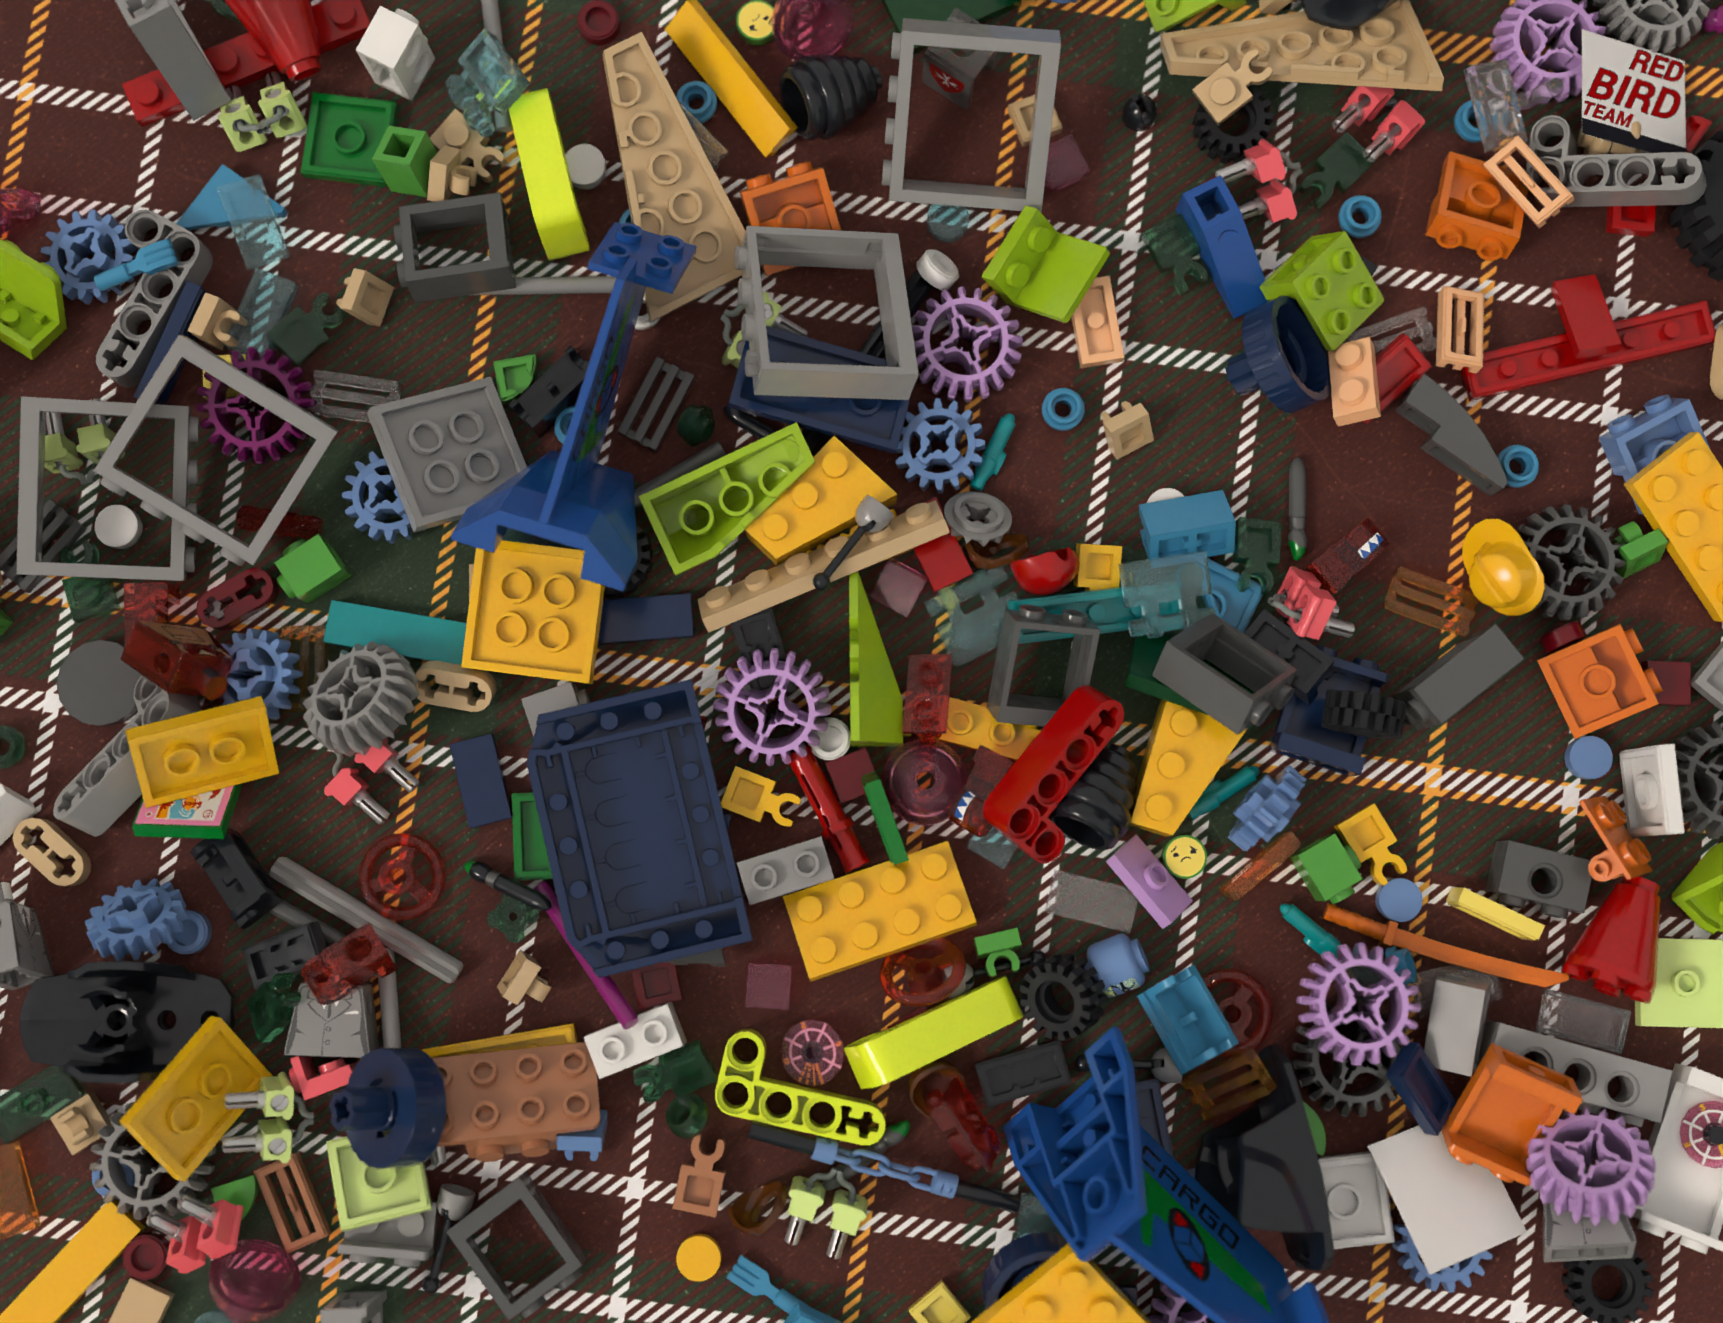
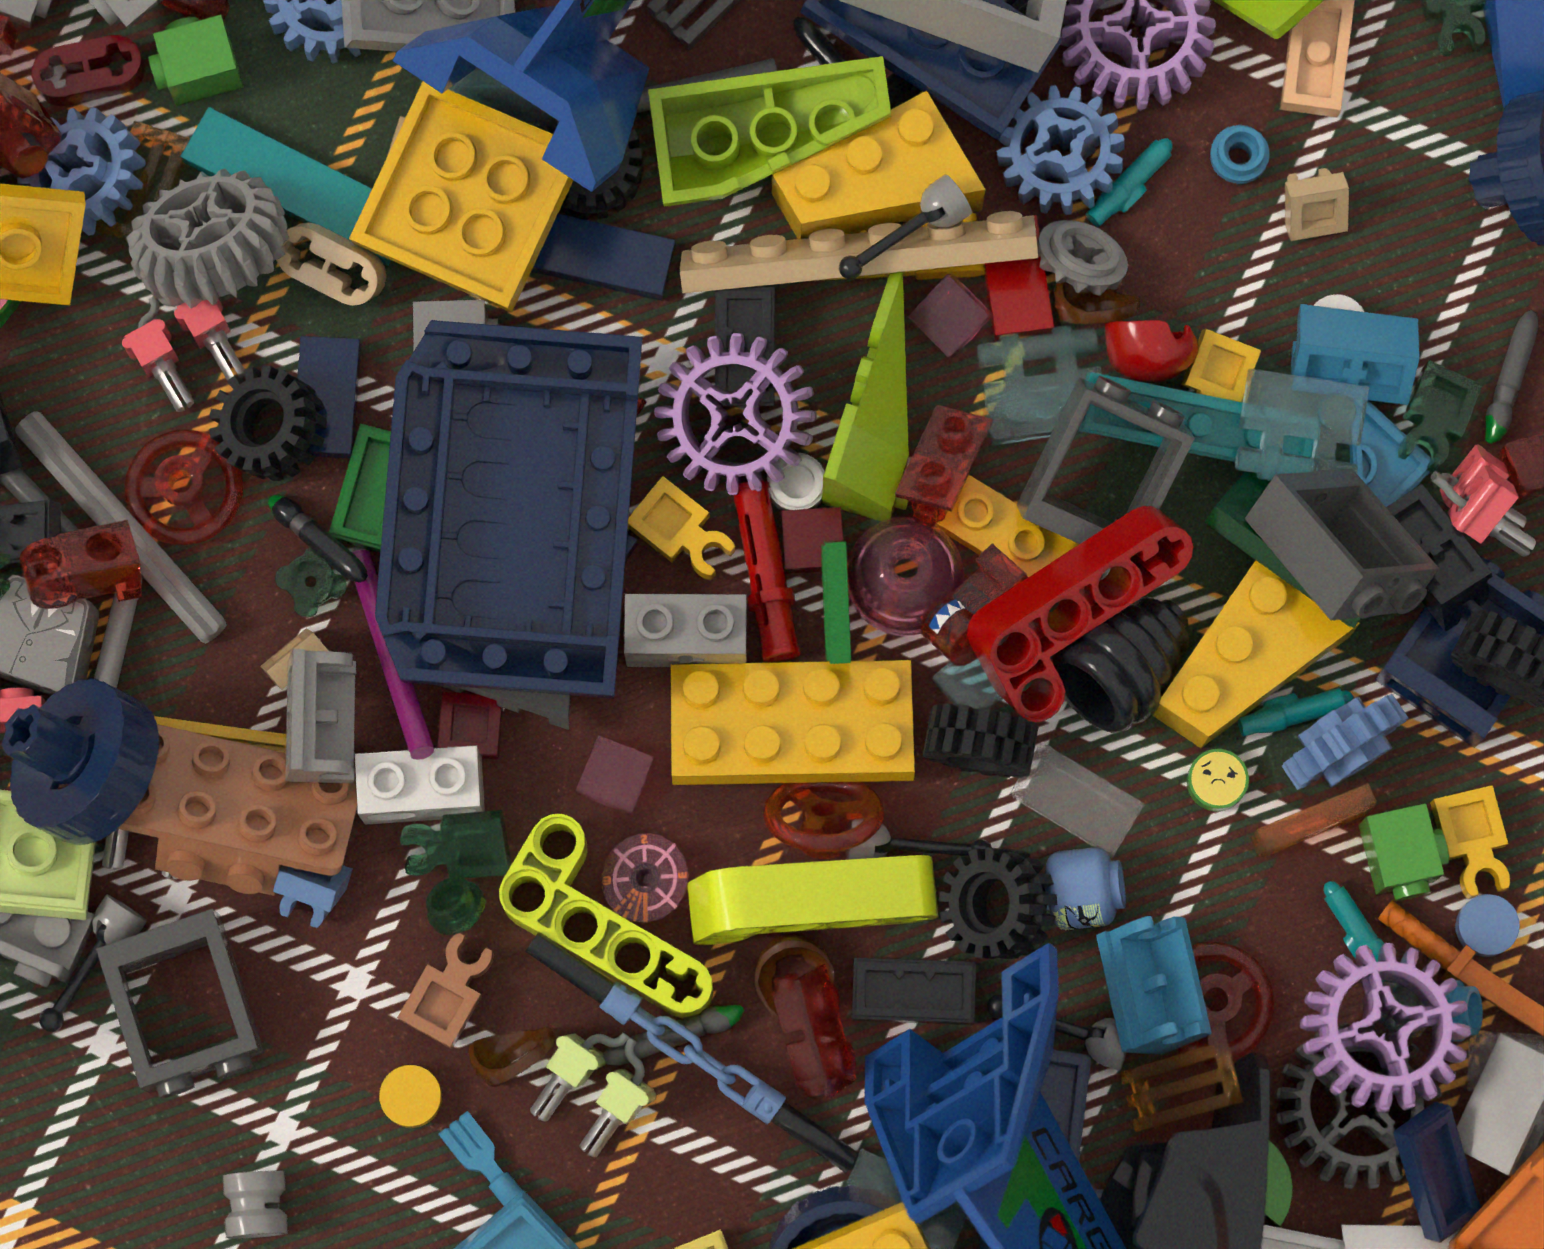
camera: 20 degrees right, 5 degrees down
(425, 821) = (241, 410): none -> black tyre
(551, 1020) = (320, 717): none -> light grey hinge
(696, 424) = (751, 28): clear green plate -> none
(997, 946) = (932, 813): bright green tile -> none
(1015, 886) = (980, 740): none -> black tyre
(1149, 881) = (1160, 794): lavender plate -> none

